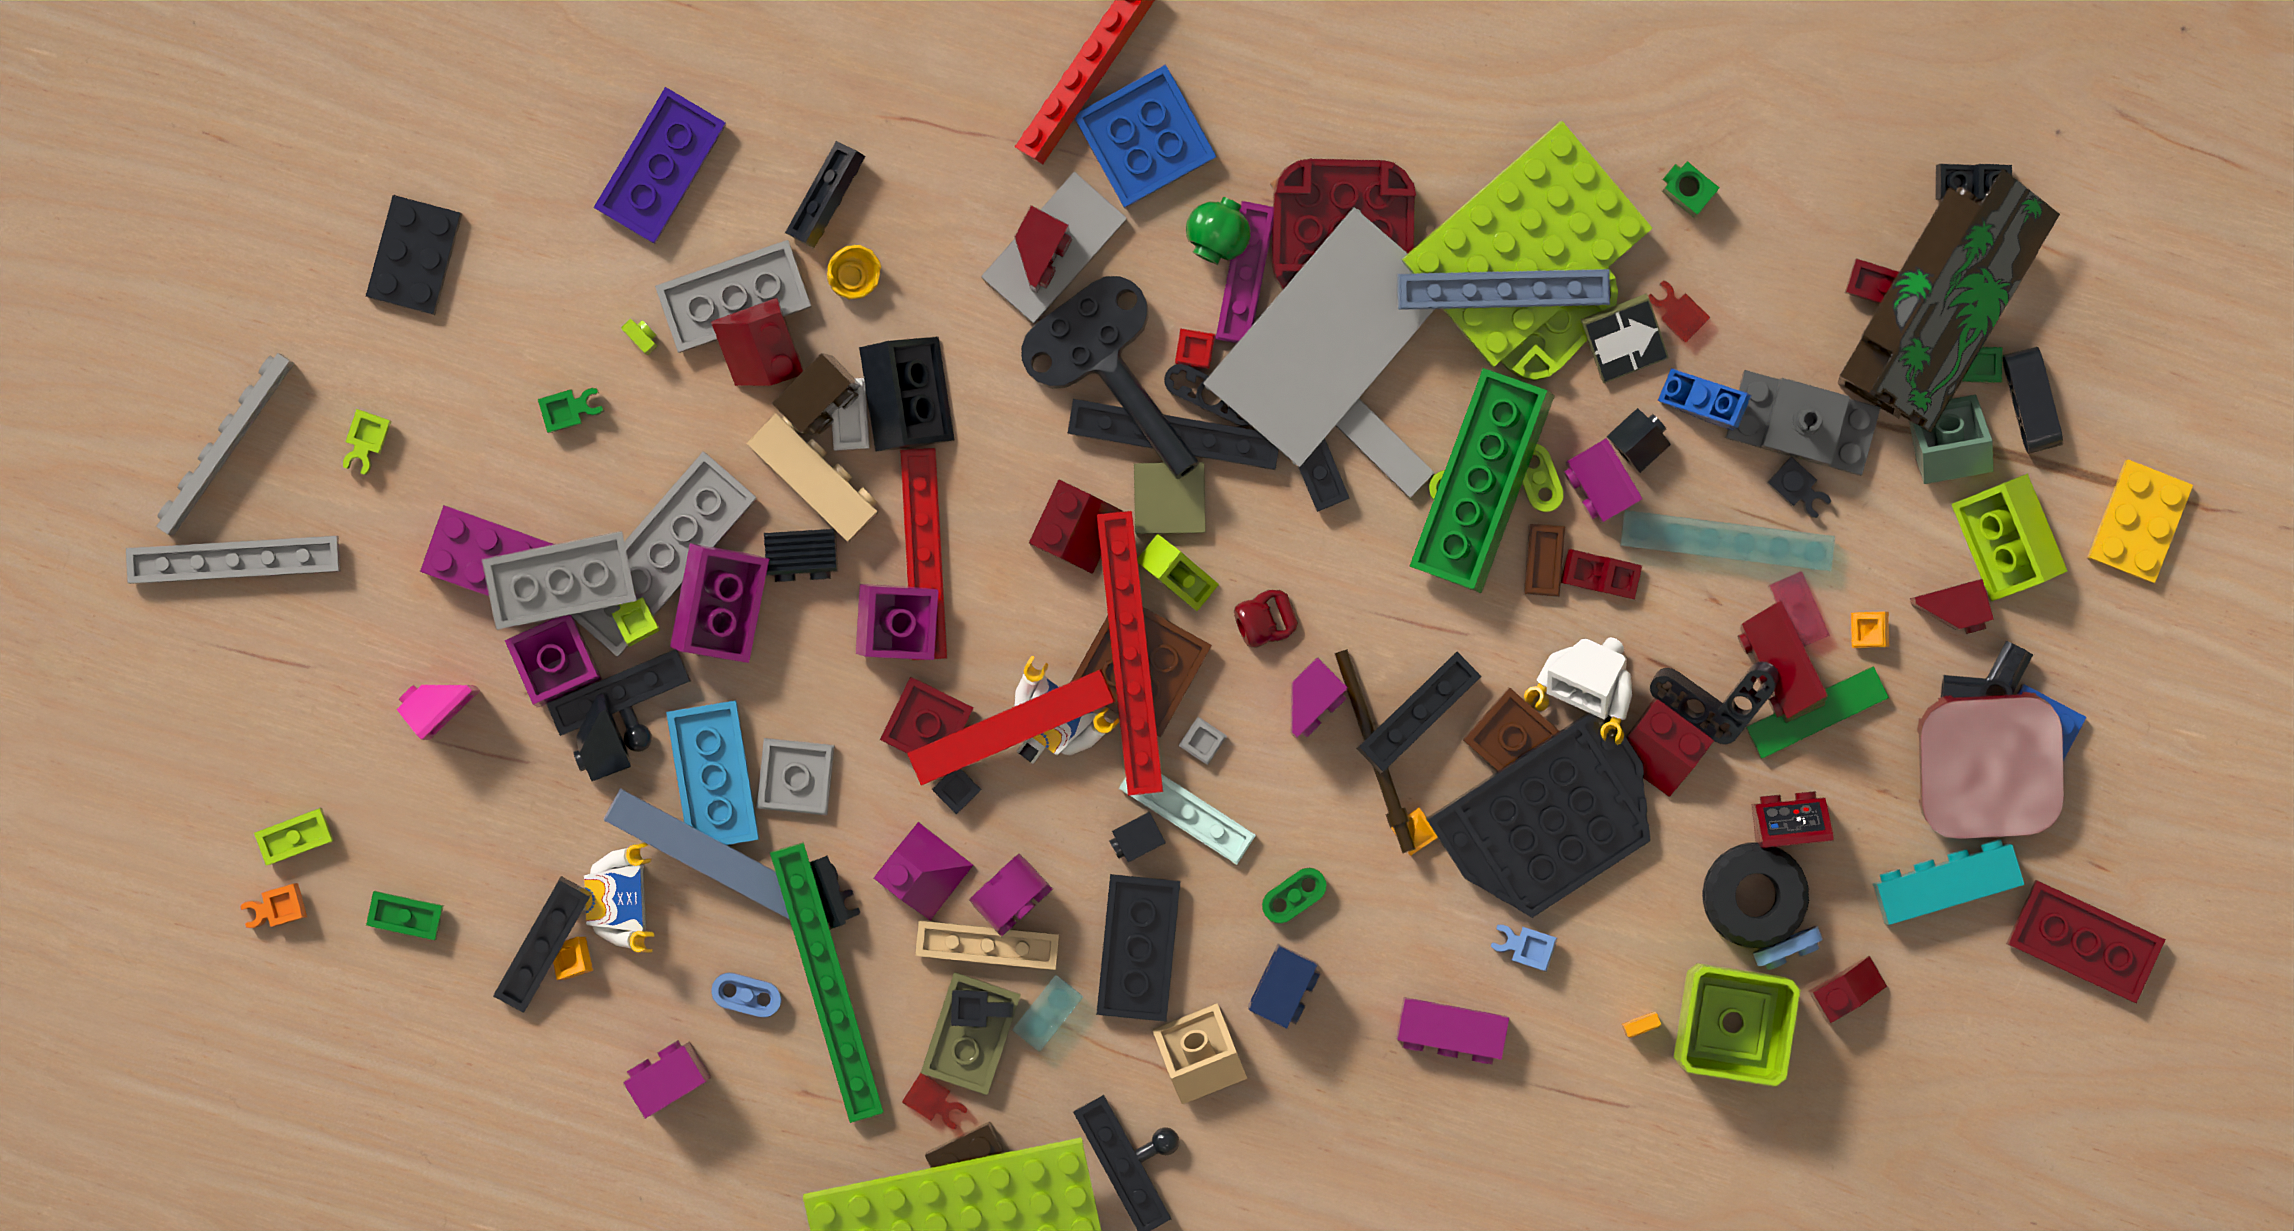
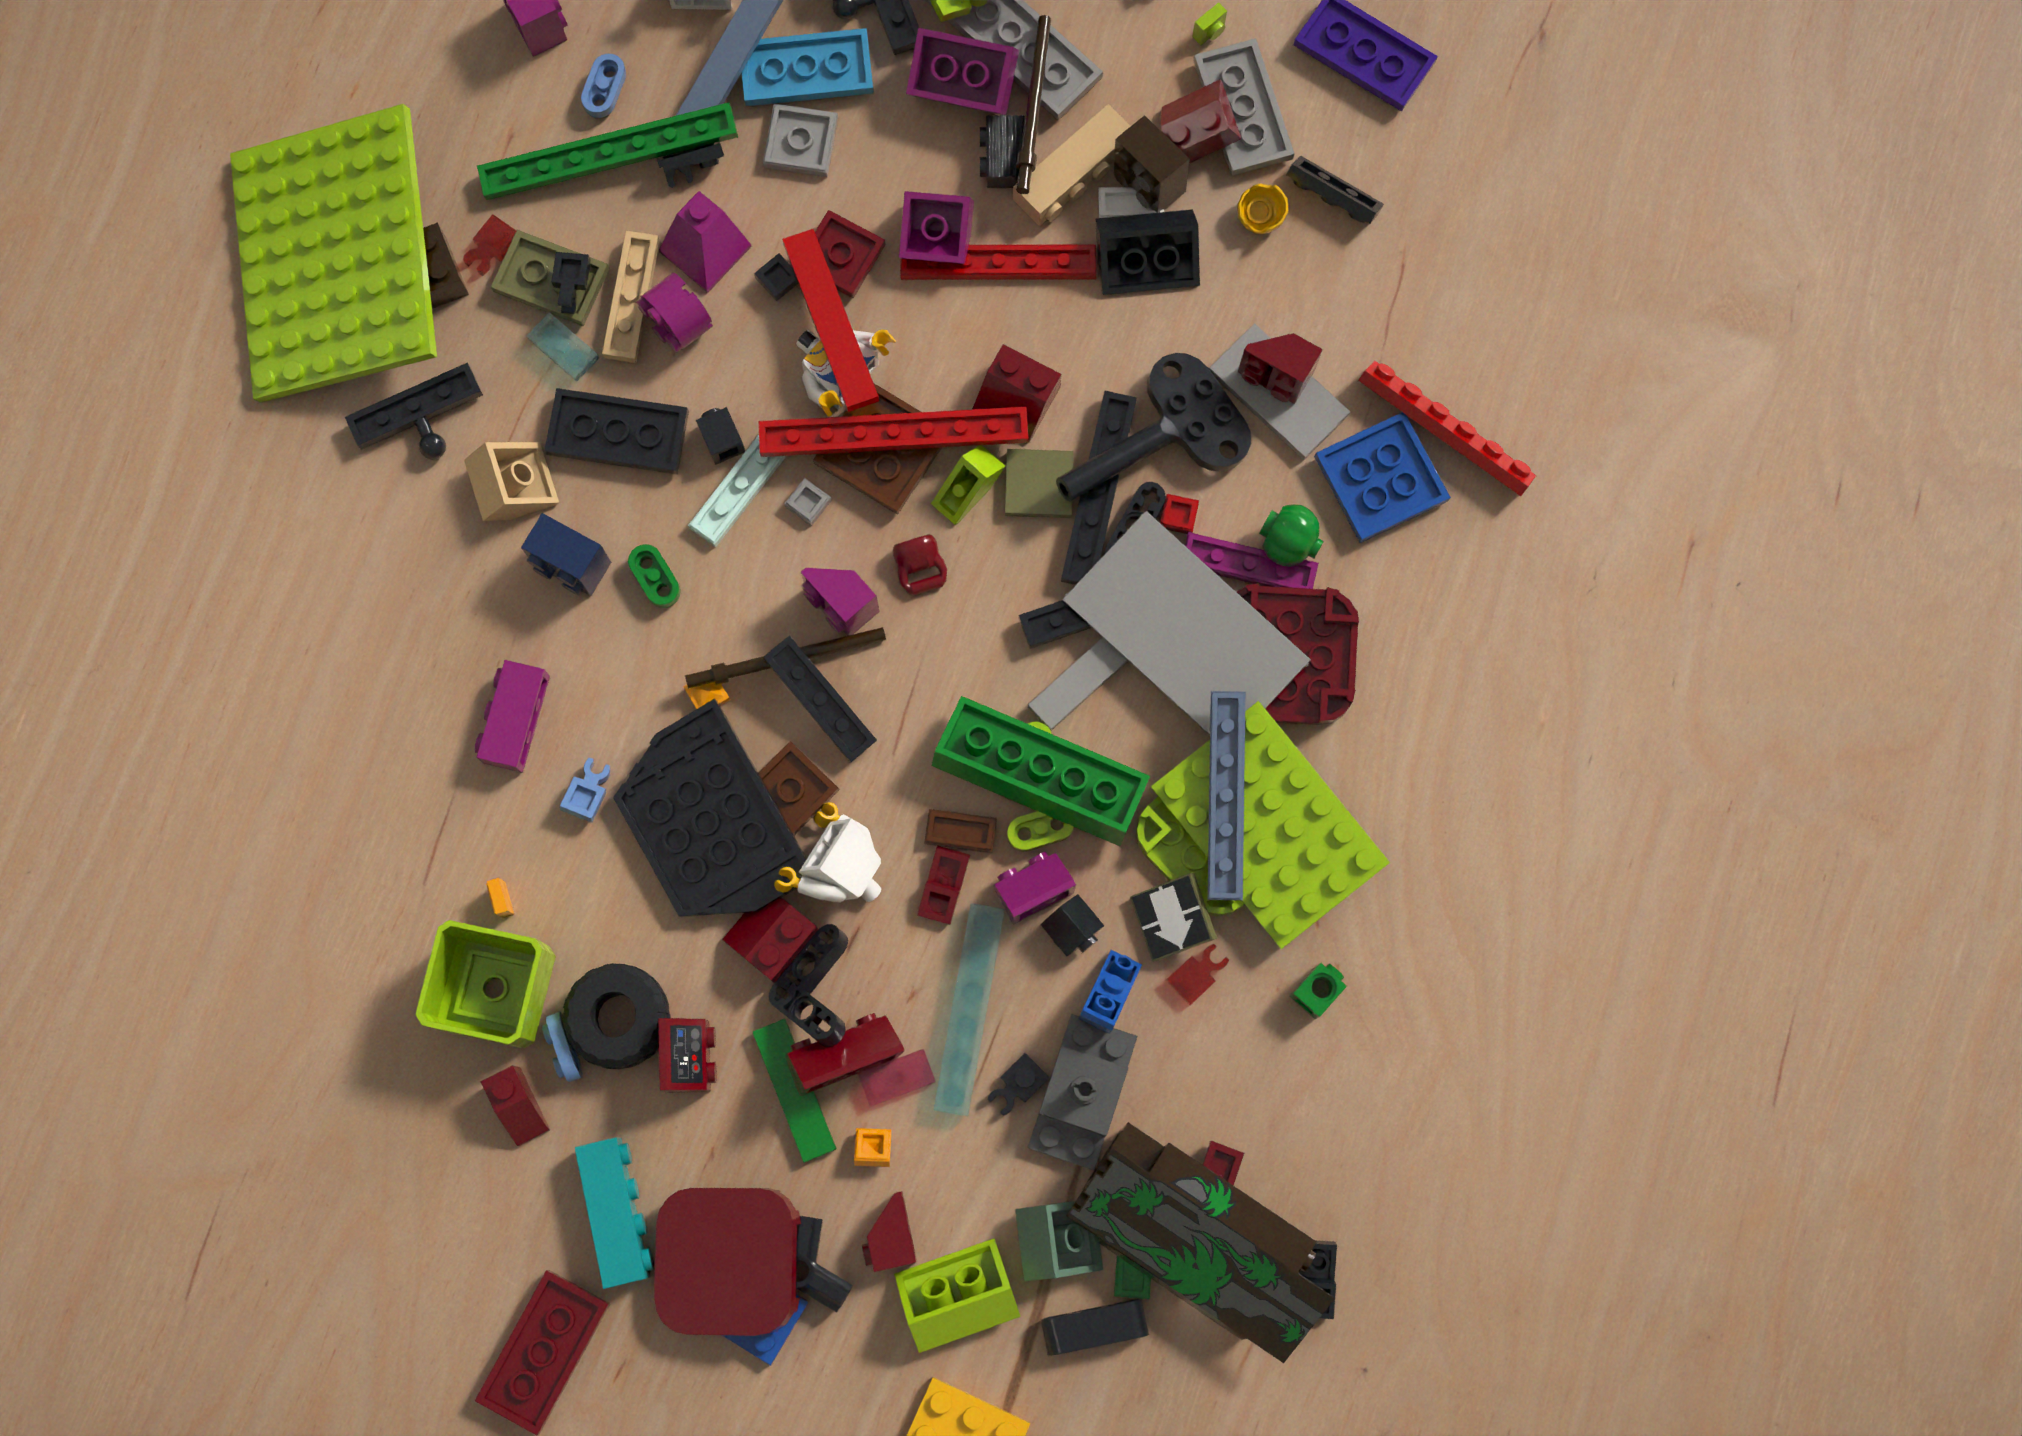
camera: 85 degrees right, 10 degrees down
(820, 528) = (1027, 158): none -> dark brown bar

